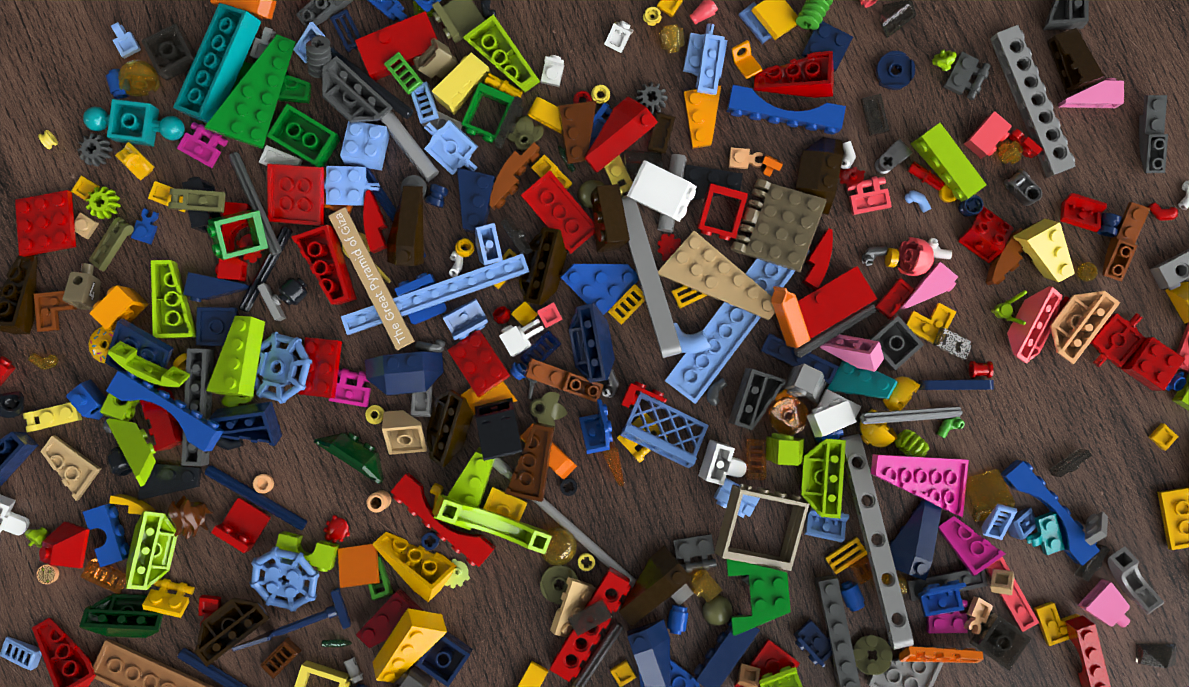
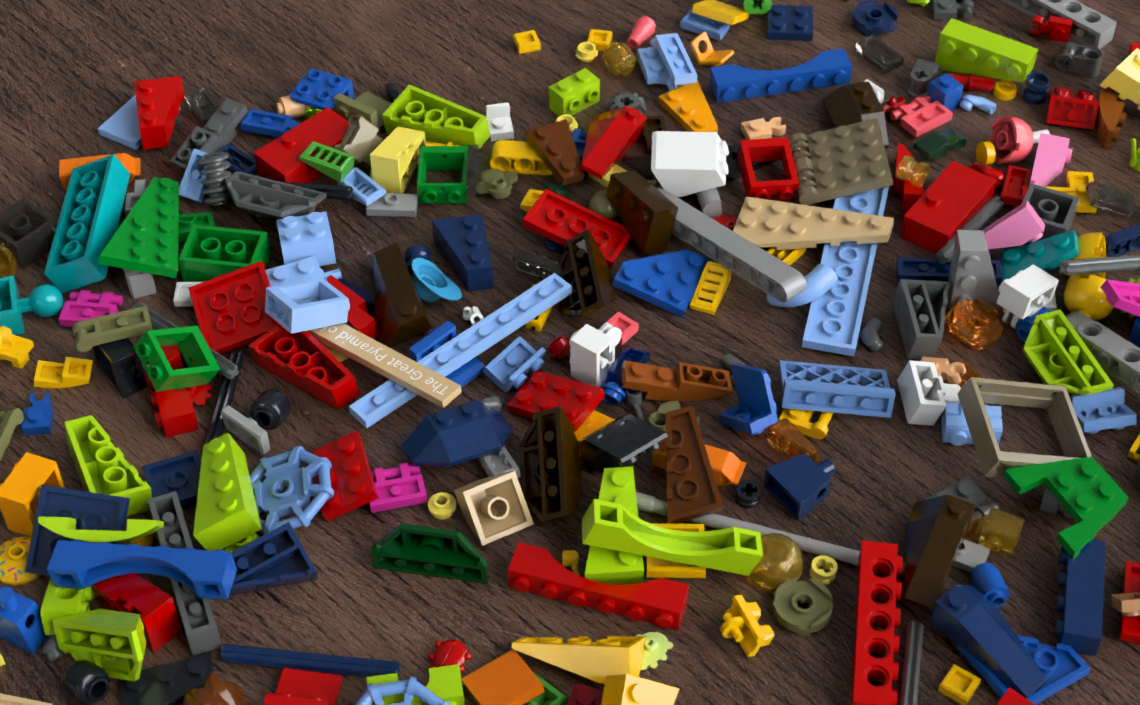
camera: 25 degrees left, 40 degrees down
(209, 288) = (158, 440): dark blue slope -> none
(227, 444) = (239, 610): black arm -> none
(263, 483) = (314, 640): light nougat tile -> none
(338, 238) = (306, 305): none -> light blue window
(373, 501) = (496, 587): light nougat head -> none
(409, 147) = (361, 232): light grey brick -> none
(426, 536) = (595, 614): dark blue bush -> none
(439, 224) = (432, 282): none -> dark azure piece
(451, 147) = (411, 213): light blue plate -> none
(464, 243) = (477, 298): yellow plate -> none
(487, 244) = (505, 275): medium blue slope -> none
(506, 181) = (500, 214): dark orange slope -> none
(513, 585) = (743, 625): none -> yellow hips
(574, 600) = (838, 621): tan wing -> none
(590, 617) = (870, 603): clear smoke plate -> none
(591, 343) = (684, 330): dark blue wedge -> none
(603, 496) = (799, 483): none -> dark blue torso
(619, 36) = (558, 70): white bracket -> none
(620, 65) = (574, 93): none -> lime brick
(630, 396) = (787, 346): red bracket -> none
(717, 611) = (1035, 559): olive hair -> none
(740, 441) = (947, 371): none -> light nougat plate
(771, 164) = (796, 119): orange tile -> none
(784, 449) = (996, 333): lime wedge -> none
(789, 317) = (909, 220): orange piece -> none
(805, 77) = (791, 43): red wedge -> none
(816, 265) = (913, 171): none -> clear yellow wheel
(864, 232) = (938, 143): none -> clear green slope
(871, 253) = (966, 156): dark grey arm -> none
(881, 278) = (989, 171): none -> red arm
(898, 184) = (946, 91): none -> blue brick
(988, 134) = (1012, 25): coral brick -> none
(1010, 152) = (1042, 36): clear yellow gear -> none

